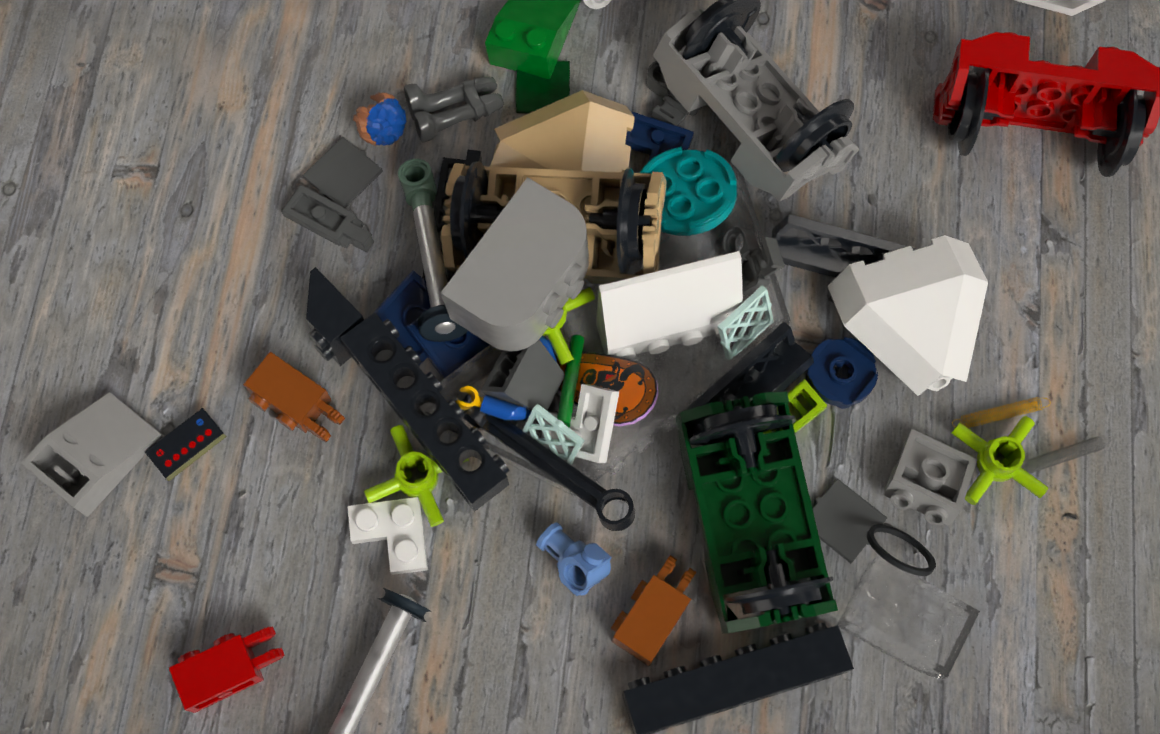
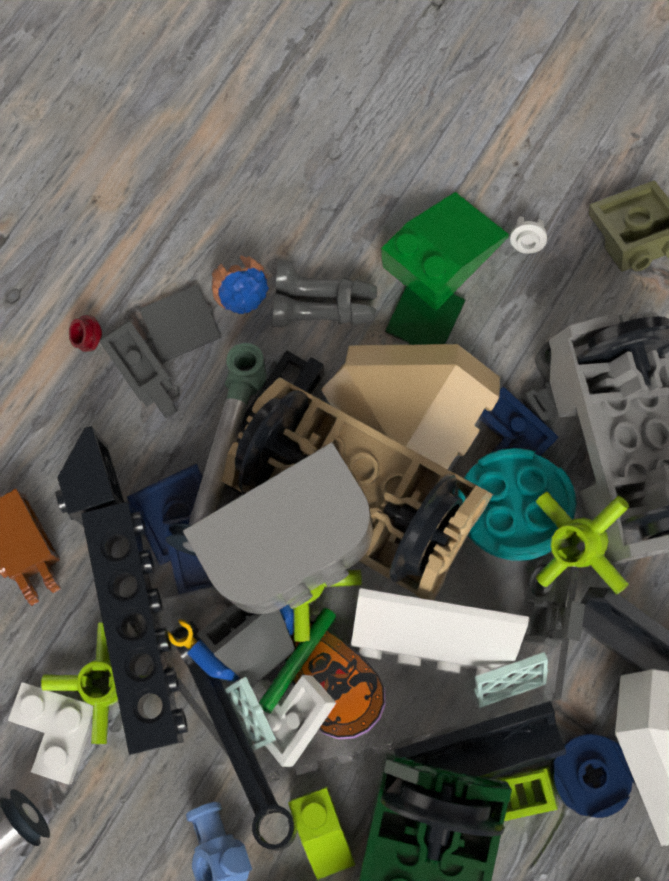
camera: 30 degrees right, 5 degrees up
(267, 211) = (85, 333): none -> dark red plate
(654, 508) = (321, 832): none -> lime slope
(739, 197) = (573, 532): none -> lime bar

